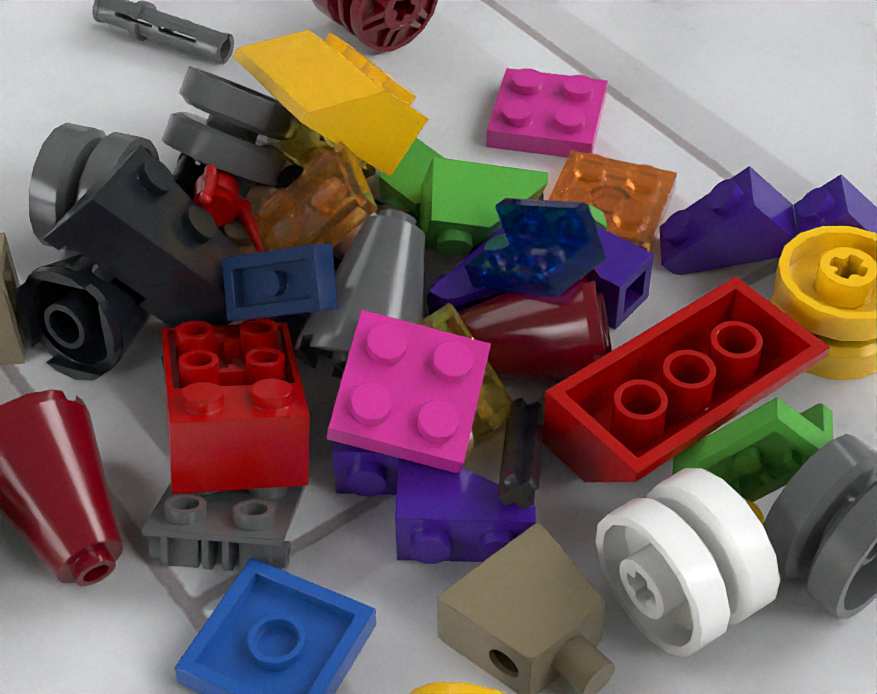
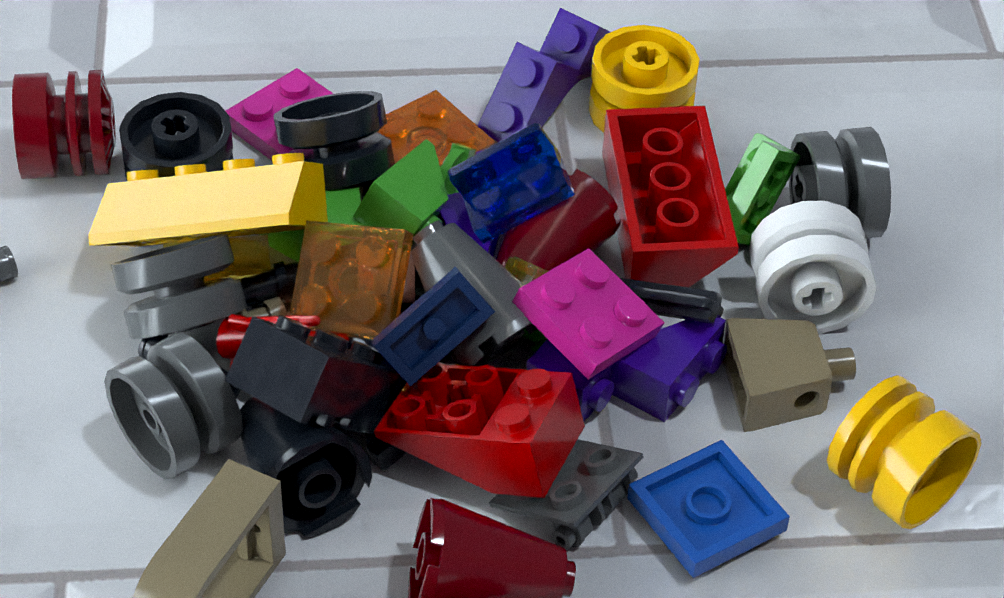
camera: 60 degrees left, 0 degrees up
(424, 51) = (175, 132): none -> black wheel
(505, 124) = (340, 135): none -> black wheel

